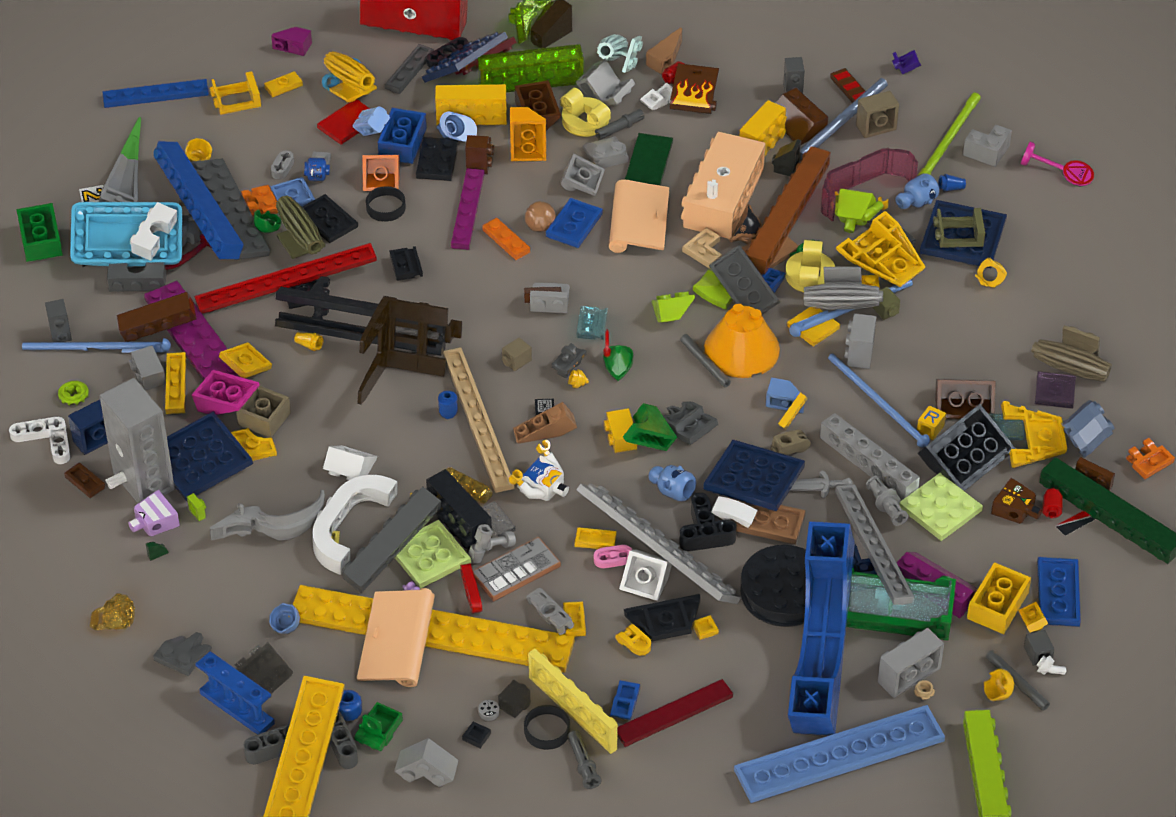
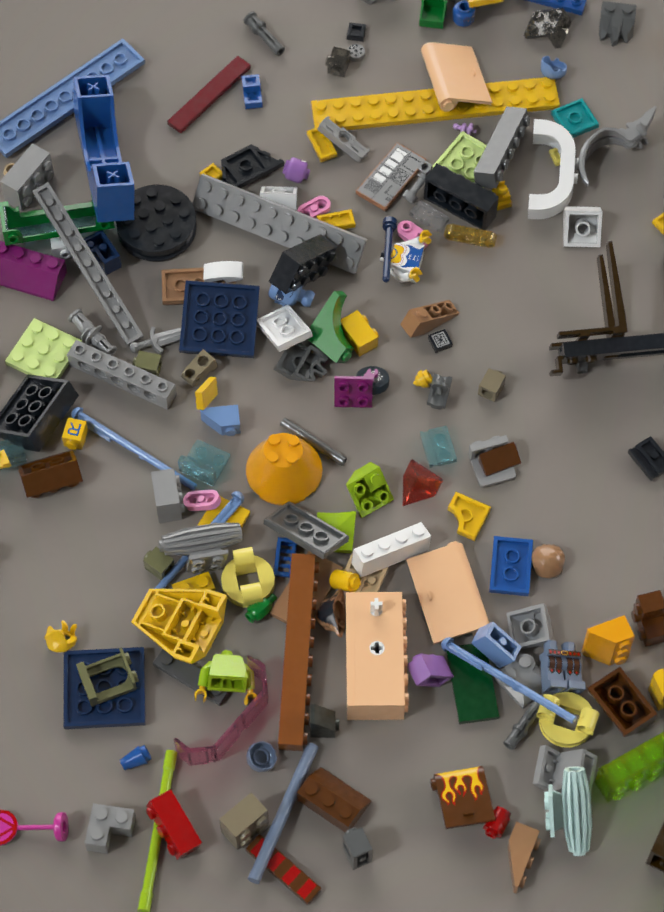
camera: 160 degrees right, 15 degrees up
(291, 570) = (575, 118): none -> teal tile
(447, 404) = (526, 306): blue brick -> none
(467, 209) = (626, 548): magenta plate -> none
(471, 588) = (418, 142): red beam -> none
(478, 420) = (493, 306): tan plate -> none
(506, 238) = (570, 527): orange plate -> none
(522, 508) = (411, 233): none -> bright pink plate
(542, 517) = (389, 226): none -> dark blue piece
(546, 744) = (304, 65): black tyre -> none
(573, 138) = (561, 669): none -> sand blue hips
(573, 701) = (290, 63): light yellow plate -> none
(590, 270) = (470, 515): none -> yellow tile
(614, 597) = (296, 170): none -> medium lavender head
(617, 358) = (396, 414): green piece -> none
(619, 163) = (496, 644): none -> medium blue brick
(625, 299) = (419, 483): none -> clear red slope
(629, 383) = (359, 389): none -> magenta plate
(639, 644) = (260, 137): yellow plate -> none
(653, 473) = (303, 264): none -> black brick
(658, 98) = (501, 781): white slope -> none
(658, 178) = (448, 645): none -> medium blue bar
(675, 249) = (391, 549): none -> white brick
(683, 162) = (429, 670): none -> medium lavender brick
(694, 444) = (284, 328): none -> white plate
(705, 531) = (248, 257): black beam -> none
(724, 241) = (345, 580): none -> yellow brick
(766, 125) = (361, 748): yellow brick -> none
(818, 366) = (204, 462): none -> clear light blue bracket
(829, 335) = (204, 500): none -> bright pink plate
(840, 460) = (149, 362): none -> olive brick
(848, 152) = (261, 756): none -> sand blue hair
(918, 192) = (166, 723): medium blue piece -> none
(935, 128) = (173, 824): none -> red brick

